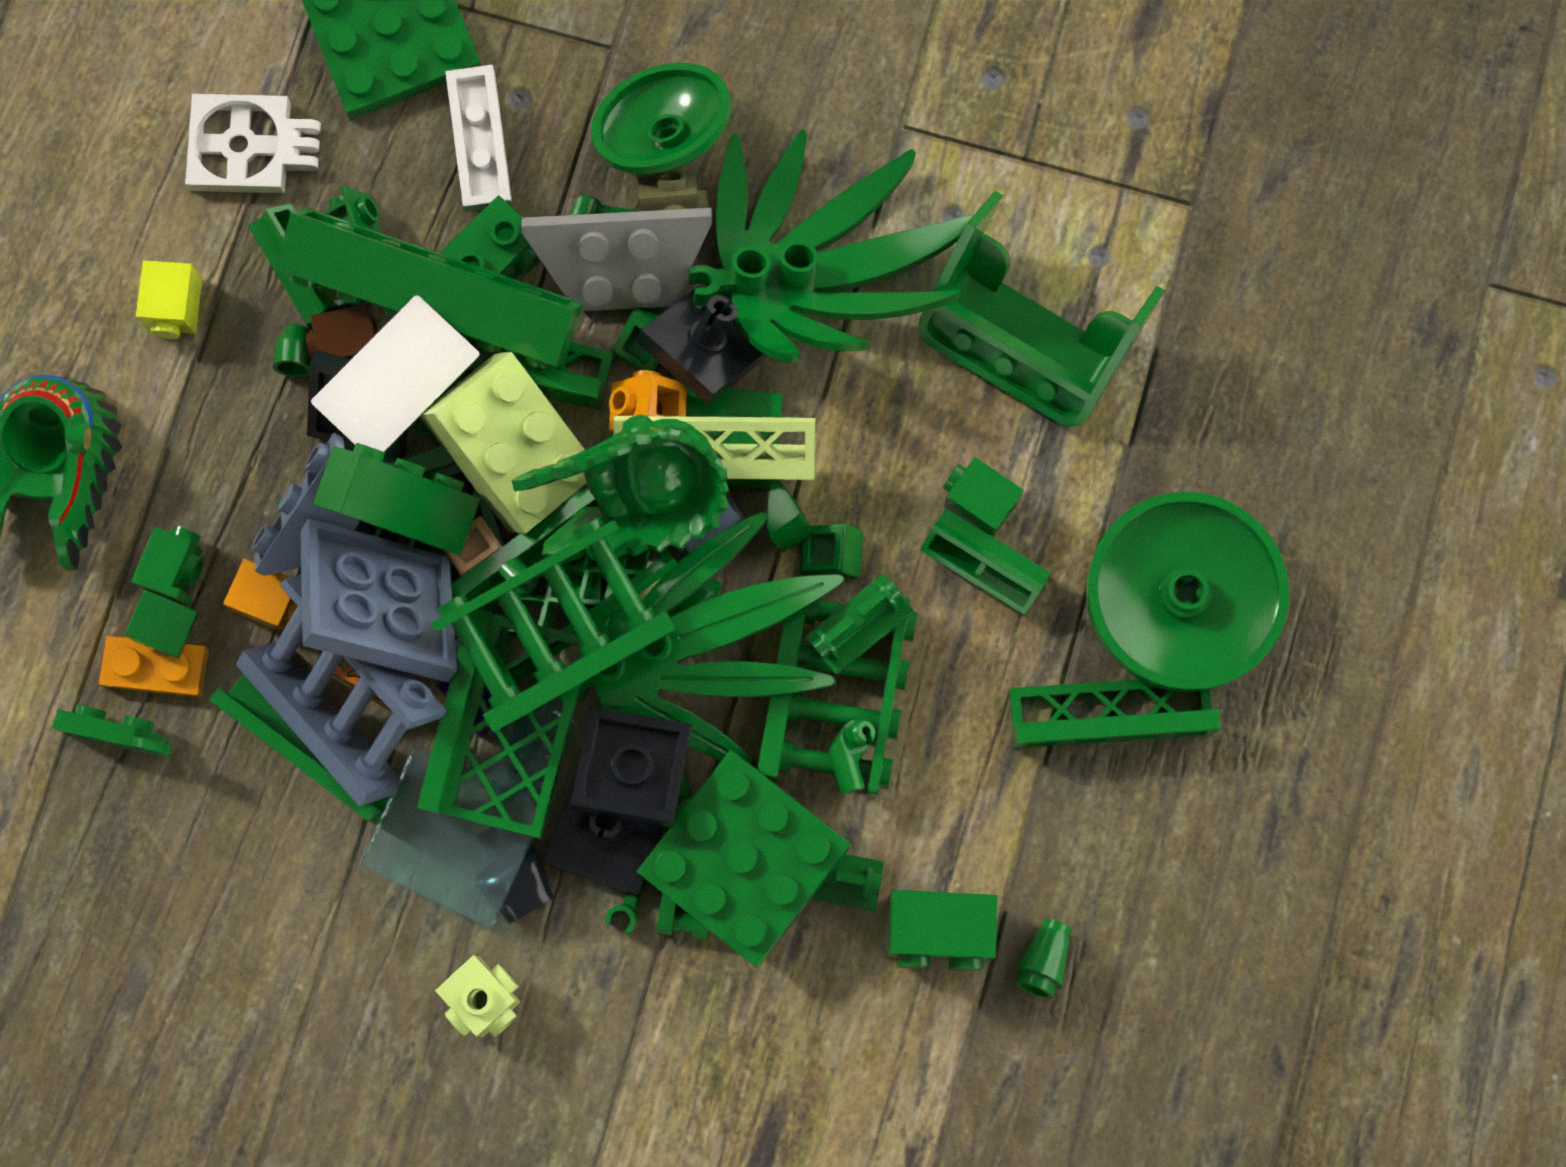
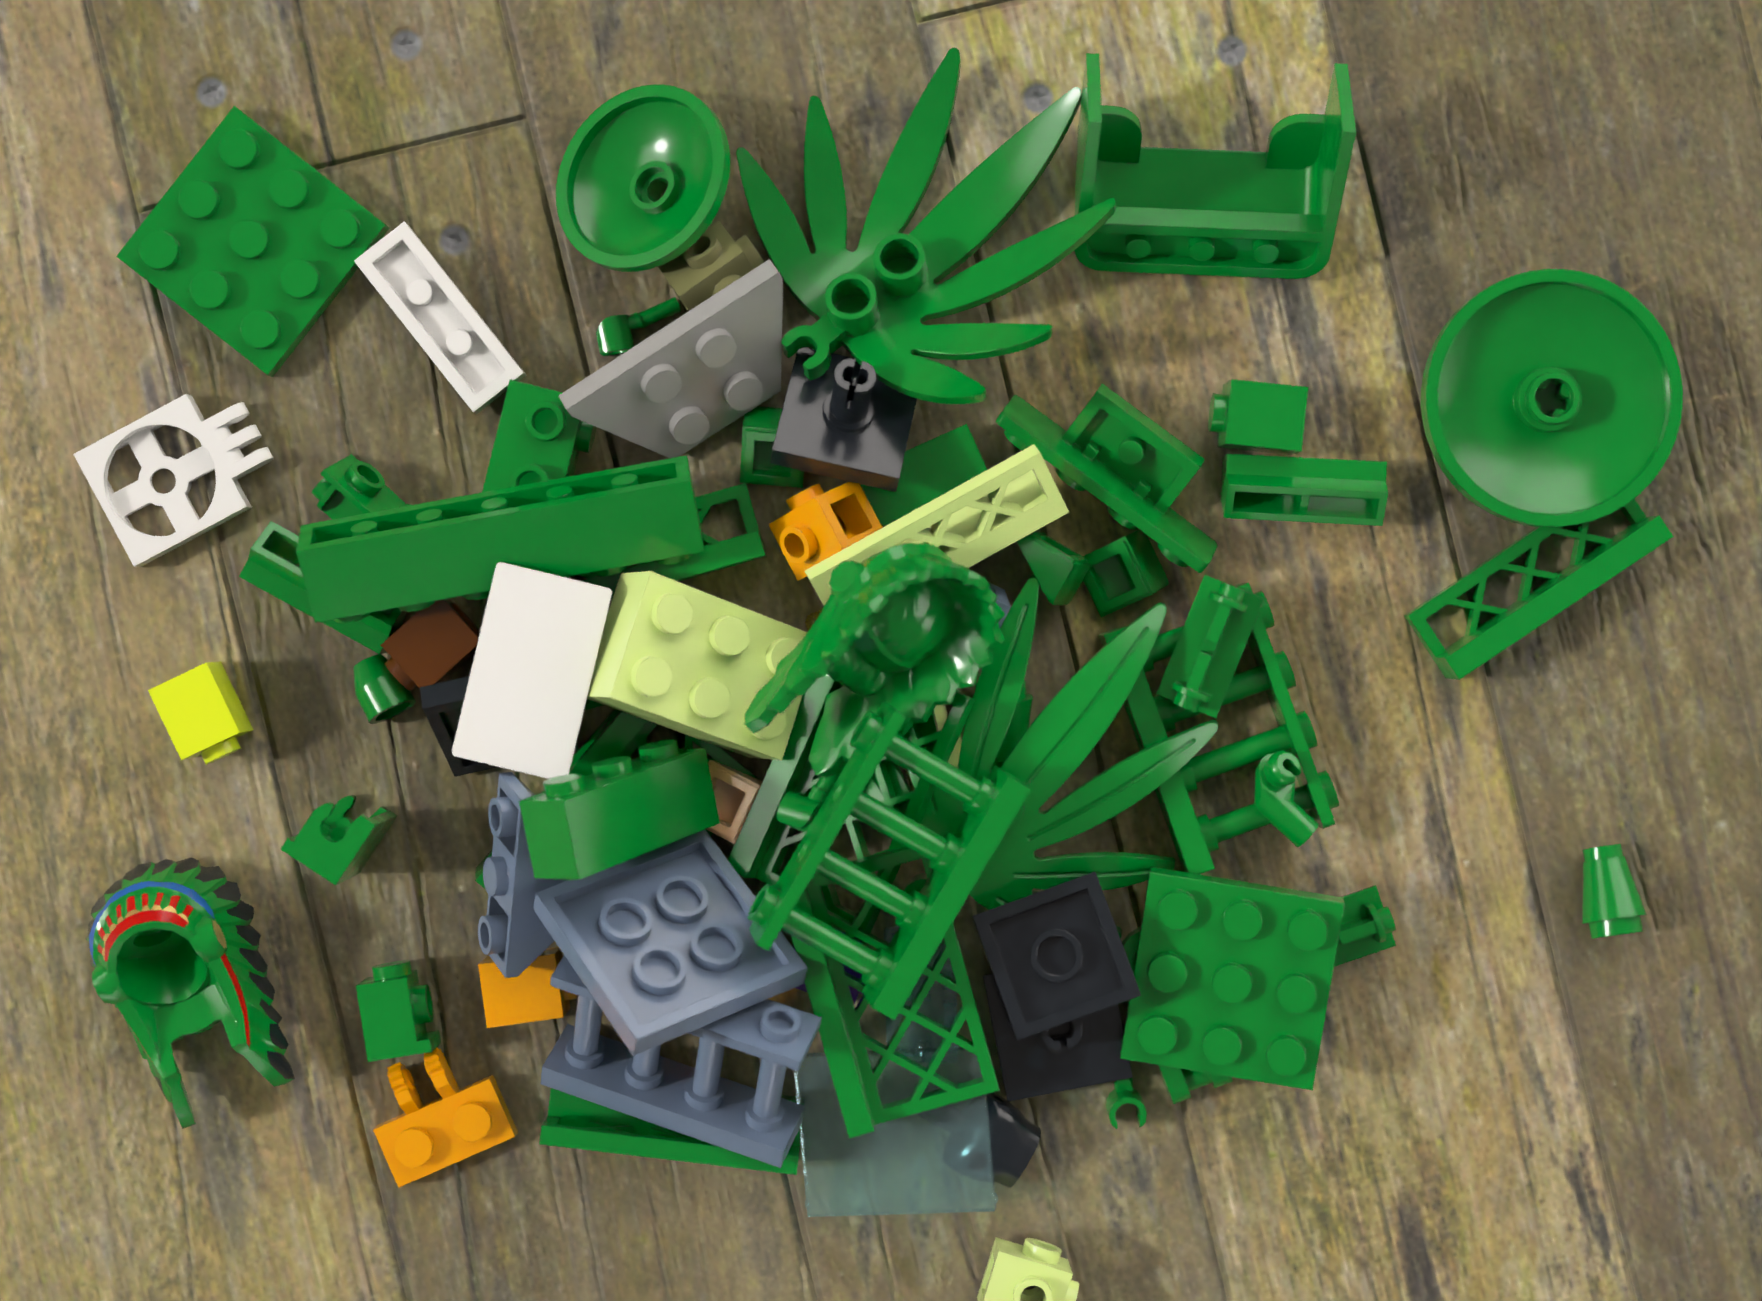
camera: 30 degrees left, 10 degrees up
(91, 725) = (471, 1223): green hinge -> none
(161, 624) = (432, 1088): green slope -> none
(209, 434) = (335, 843): none -> green hinge
(873, 478) = (1121, 462): none -> green bracket
(941, 927) = (1489, 932): green brick -> none

